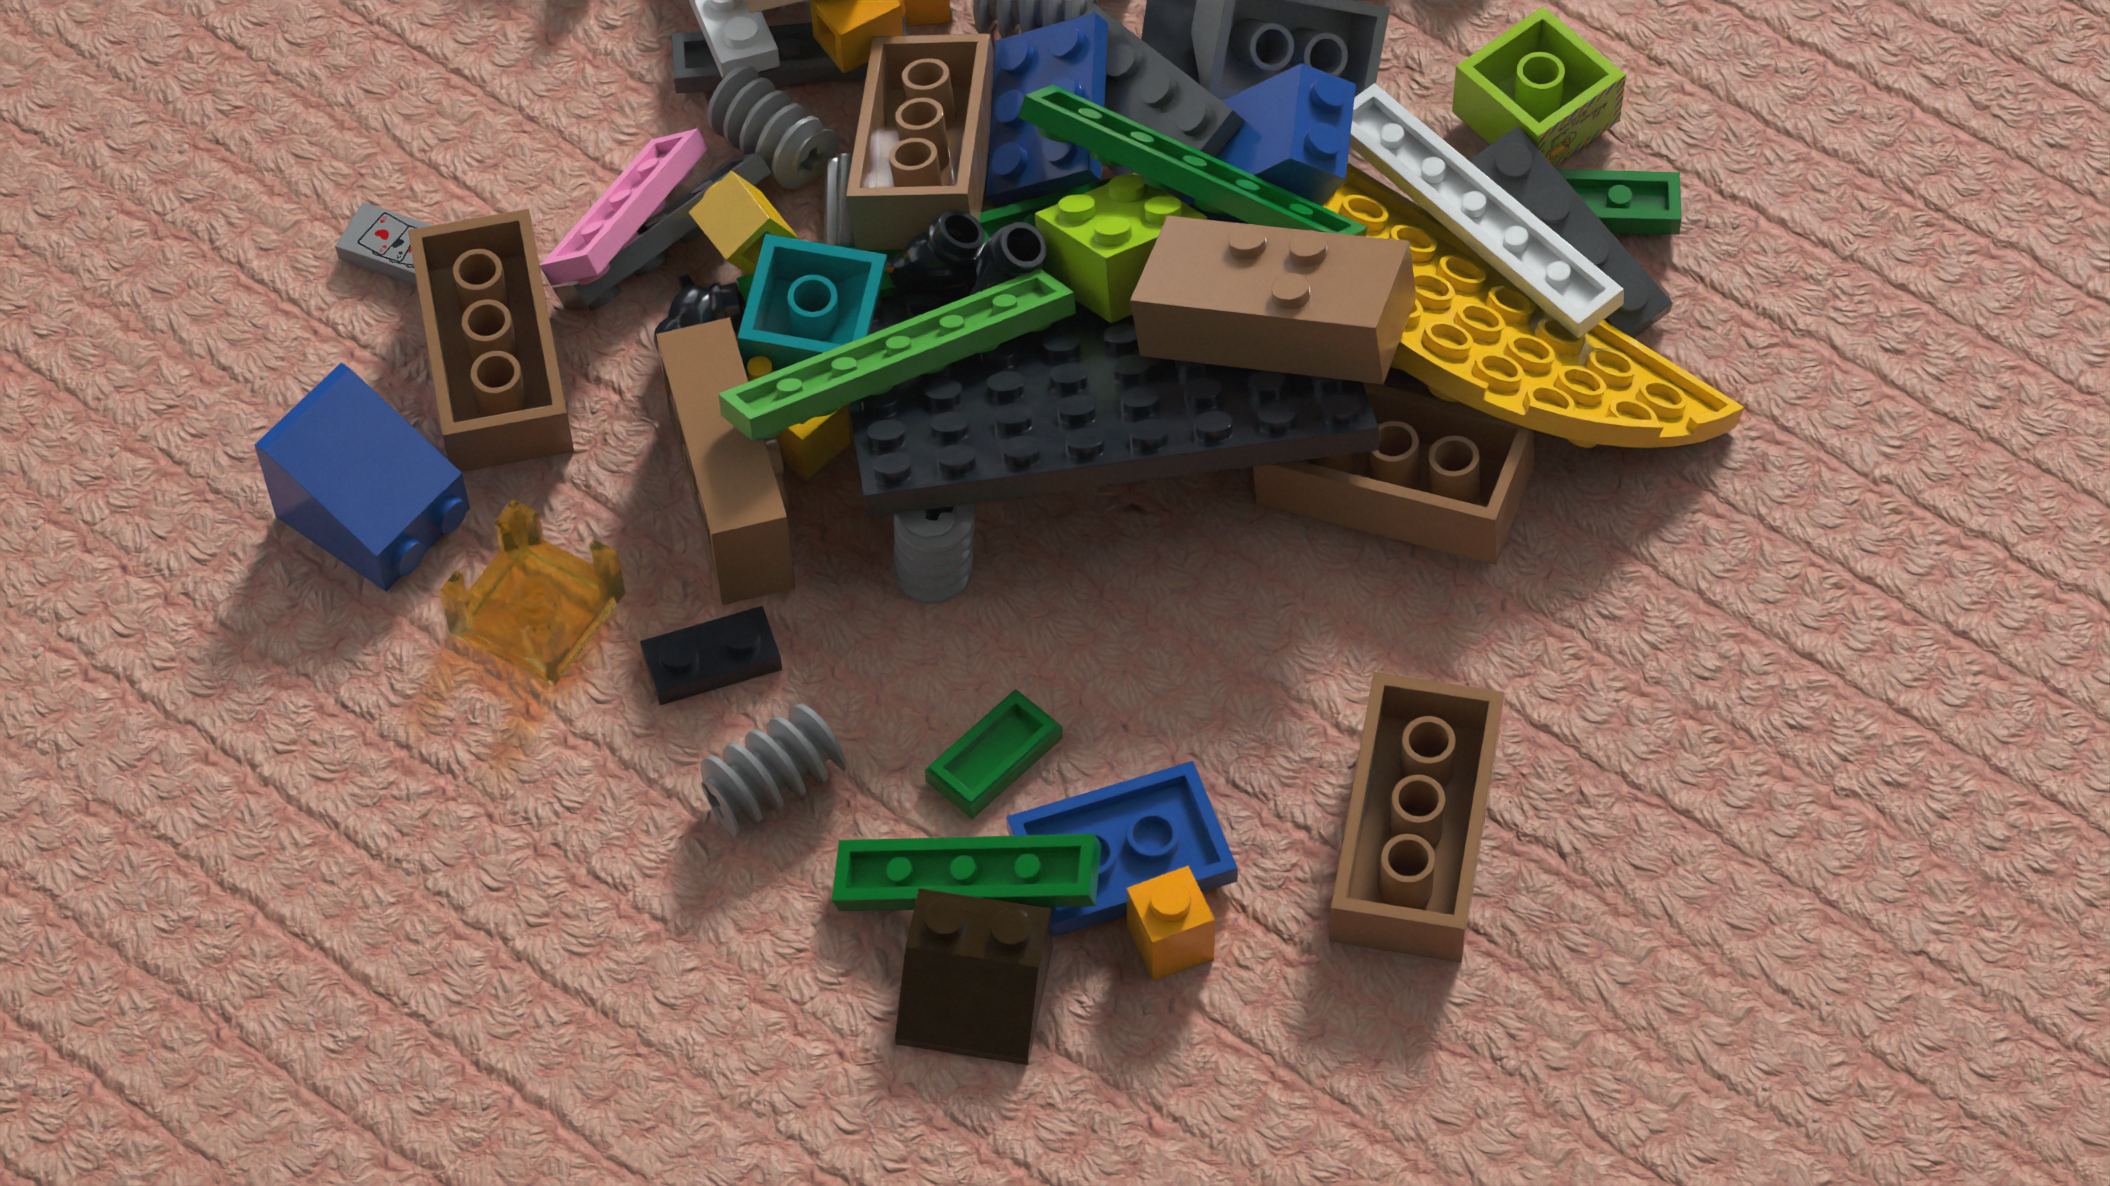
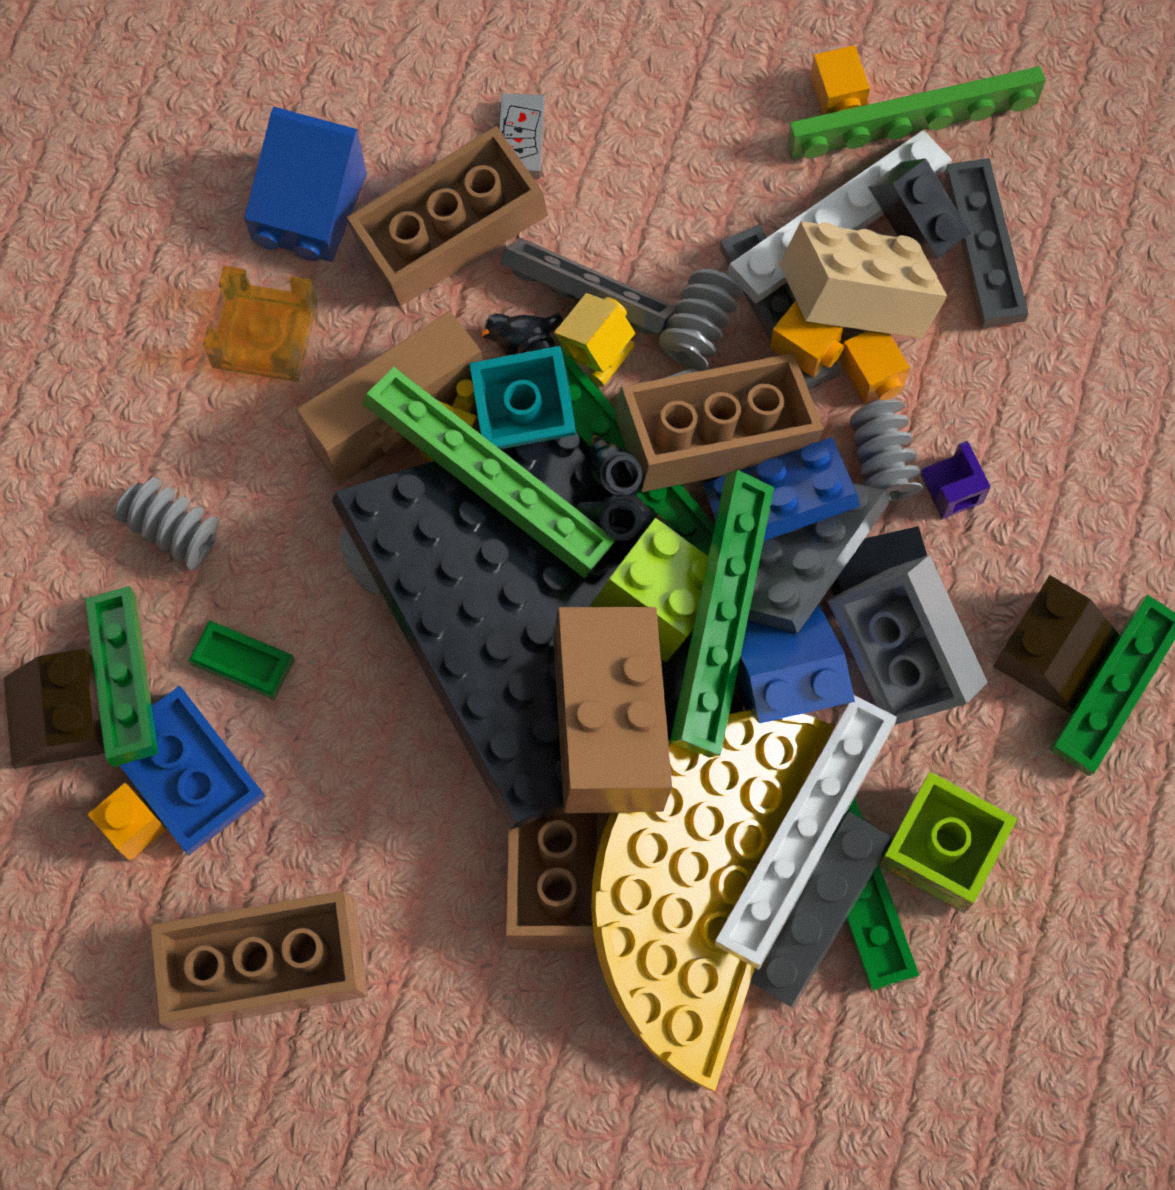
camera: 70 degrees right, 15 degrees up
(624, 208) = (584, 252): bright pink plate -> none
(711, 655) = (261, 453): black plate -> none

